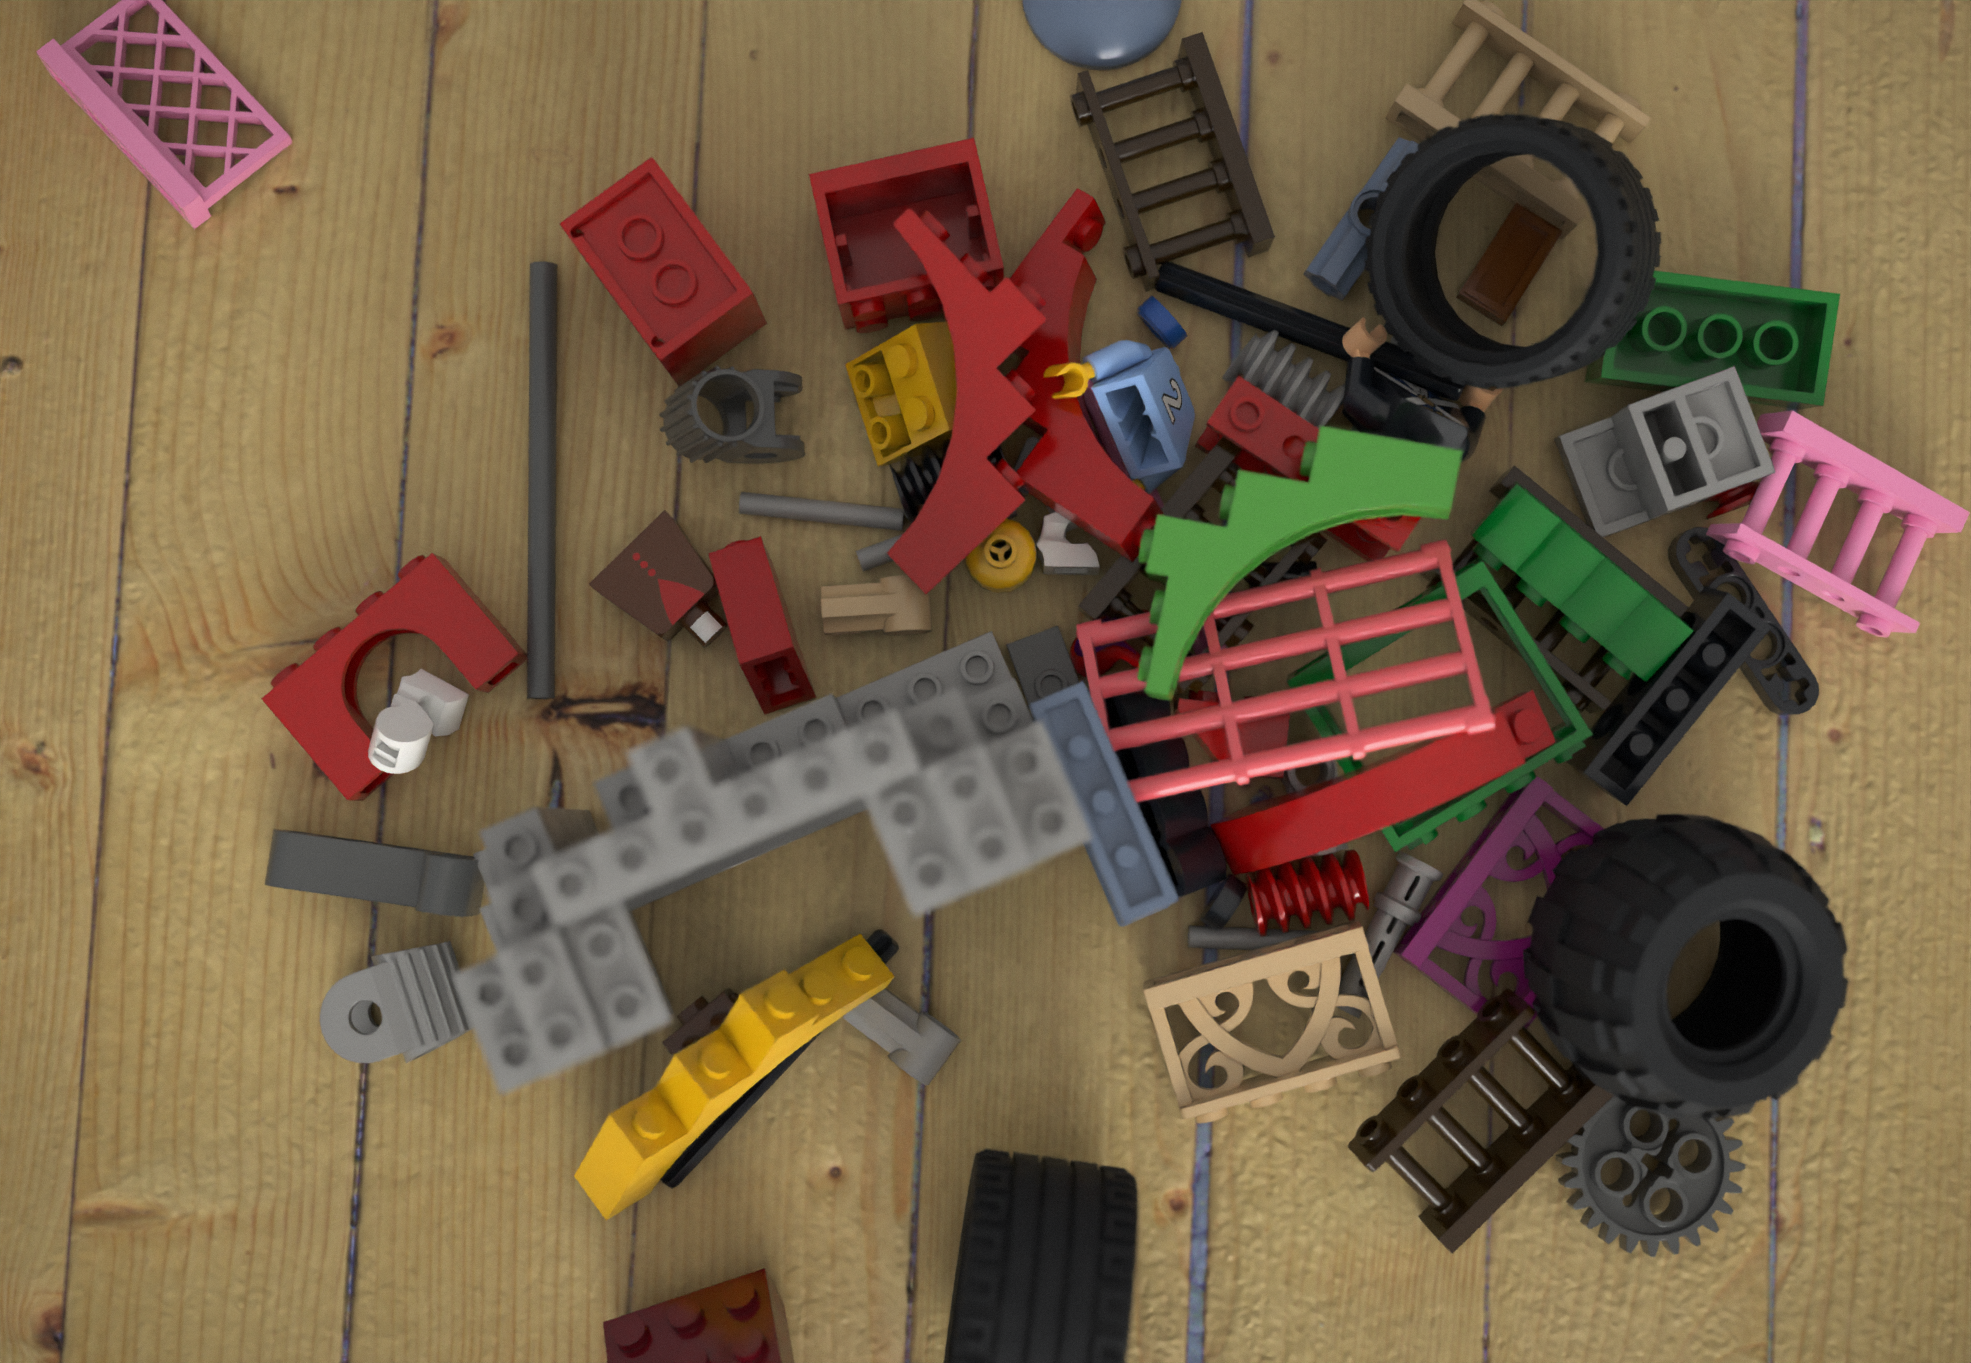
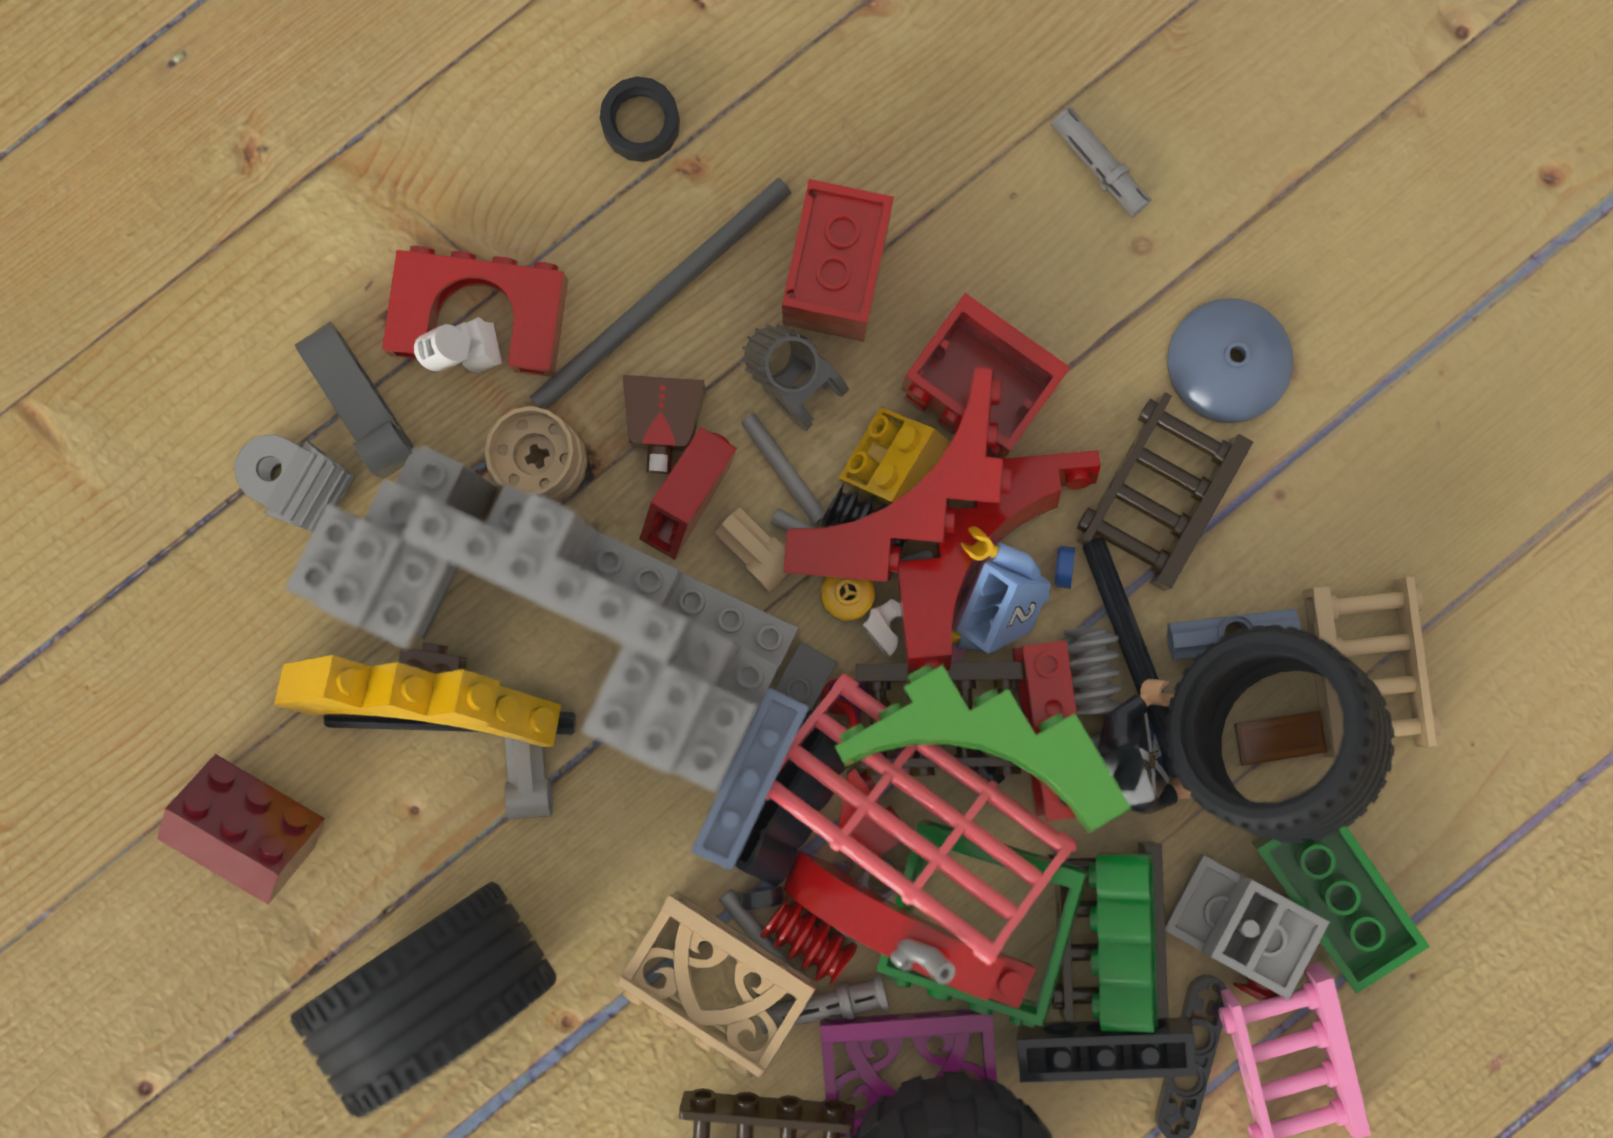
camera: 45 degrees right, 0 degrees up
(320, 317) = (633, 88): none -> black tyre
(560, 731) = (515, 446): none -> tan wheel
(1435, 780) = (928, 957): none -> light grey arm

